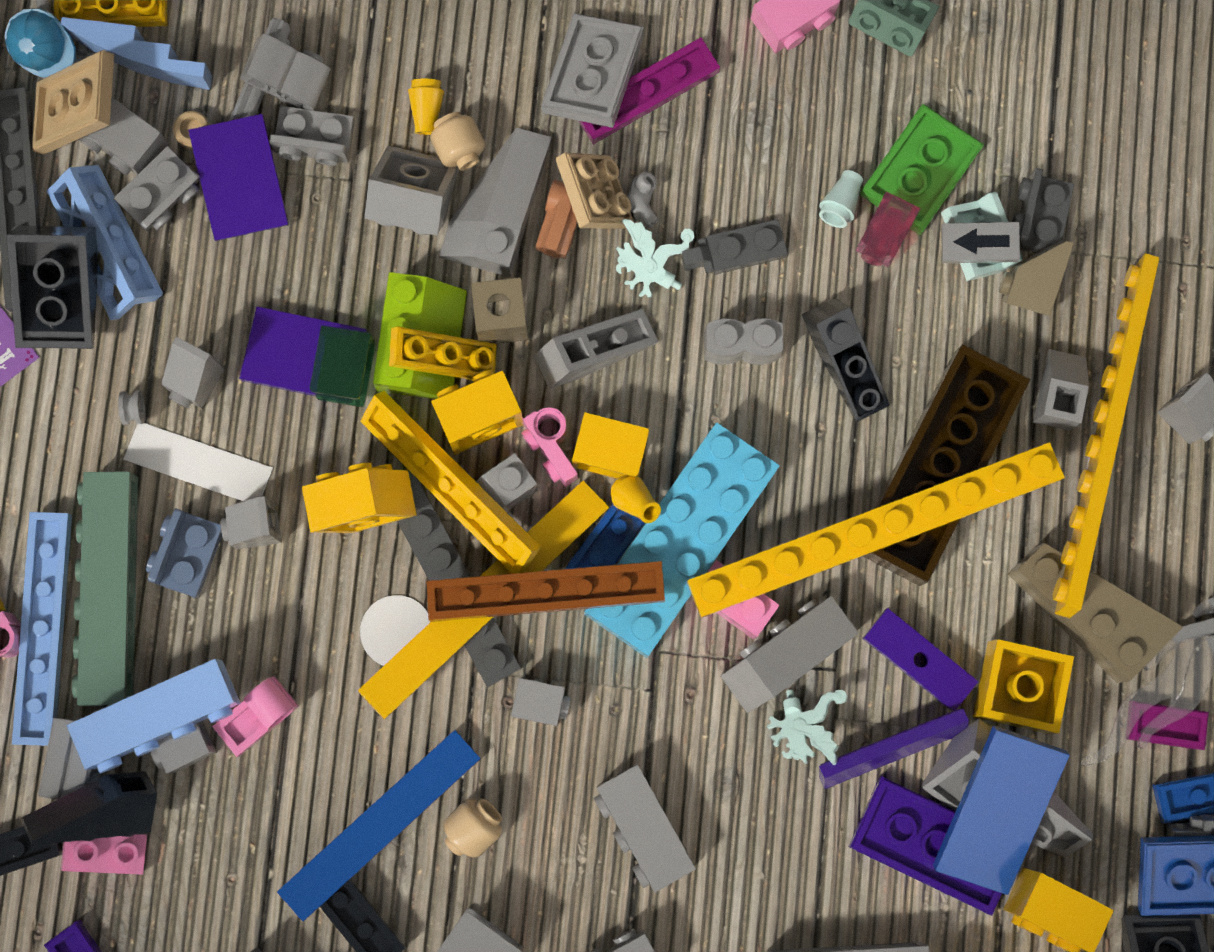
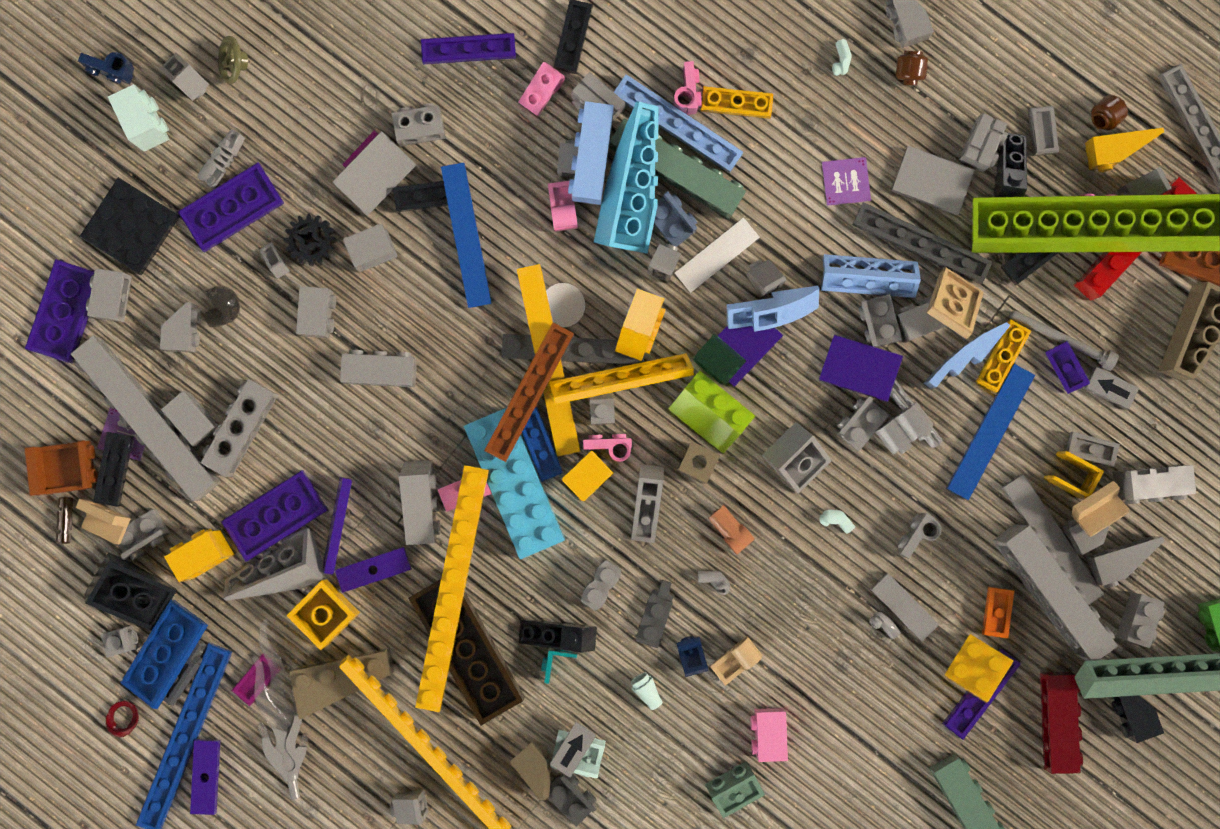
camera: 125 degrees right, 5 degrees up
(39, 42) = (1003, 305): dark azure piece -> none
(53, 286) = (858, 233): black slope -> none
(102, 809) = (562, 96): black slope -> none
(131, 407) = (767, 237): light grey bush -> none
(187, 121) = (909, 359): tan tile -> none
(188, 626) = (629, 194): none -> medium azure wedge
(237, 339) = (775, 311): none -> light blue slope
(425, 103) = (840, 494): yellow cone -> none
(426, 353) = (698, 409): yellow tile -> none
(457, 141) = (809, 499): tan head -> none
(459, 93) = (836, 517): none -> light aqua arm
(472, 827) = (434, 282): tan head -> none
(477, 410) = (650, 415): yellow brick -> none
(495, 213) = (757, 496): light grey wedge -> none
(540, 702) = (477, 356): light grey brick -> none
(593, 70) = (804, 599): light grey tile -> none
(594, 190) = (733, 556): tan tile -> none
(634, 498) = (550, 471): yellow cone -> none
(649, 266) = (675, 562): light aqua piece -> none
(659, 85) = (774, 622): magenta plate -> none
(727, 109) = (736, 660): none -> tan plate
(760, 168) = (692, 656): none -> dark blue bracket
(801, 724) = (380, 483): light aqua piece -> none
(887, 230) = (612, 702): clear pink slope -> none
(889, 348) = (547, 662): none -> teal bracket
(923, 165) = (637, 747): bright green tile -> none
(1000, 810) = (267, 558): tile -> none
(1062, 391) = (466, 742): light grey slope -> none

